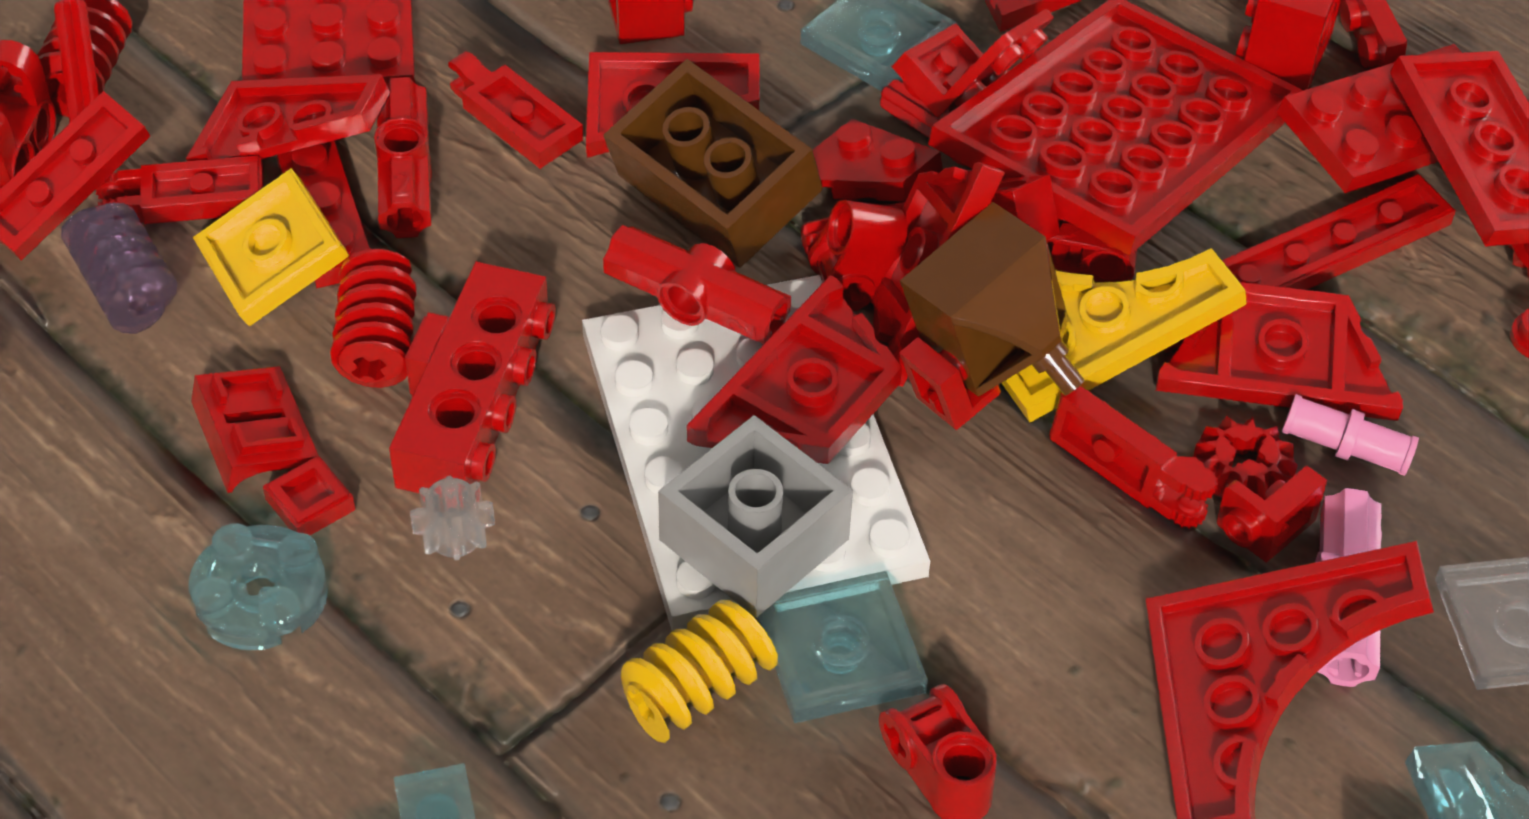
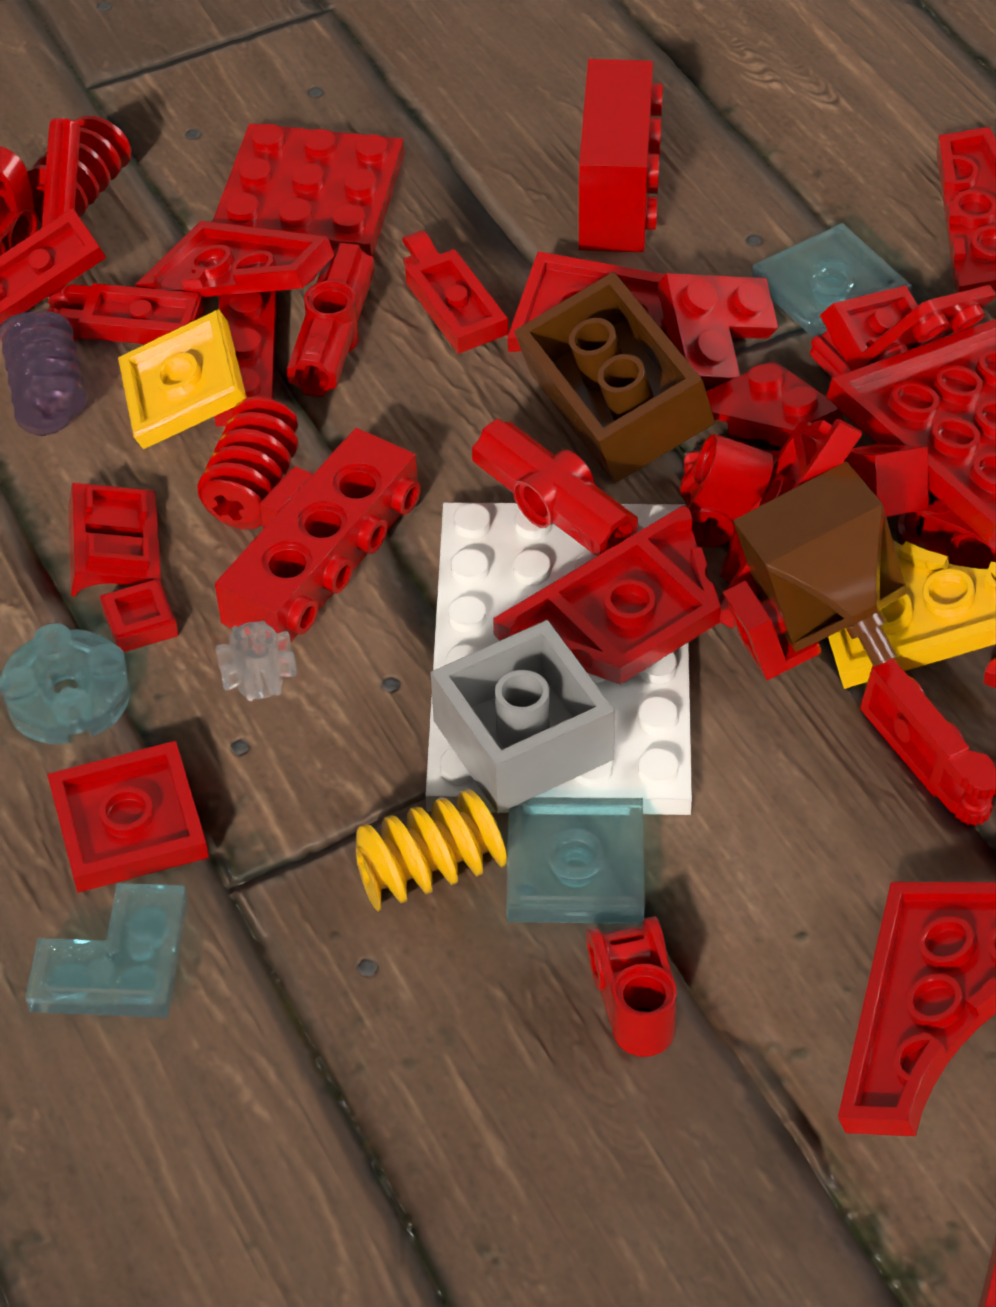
camera: 20 degrees right, 0 degrees up
(375, 706) = (127, 816): none -> red plate
(783, 81) = (708, 312): none -> red plate

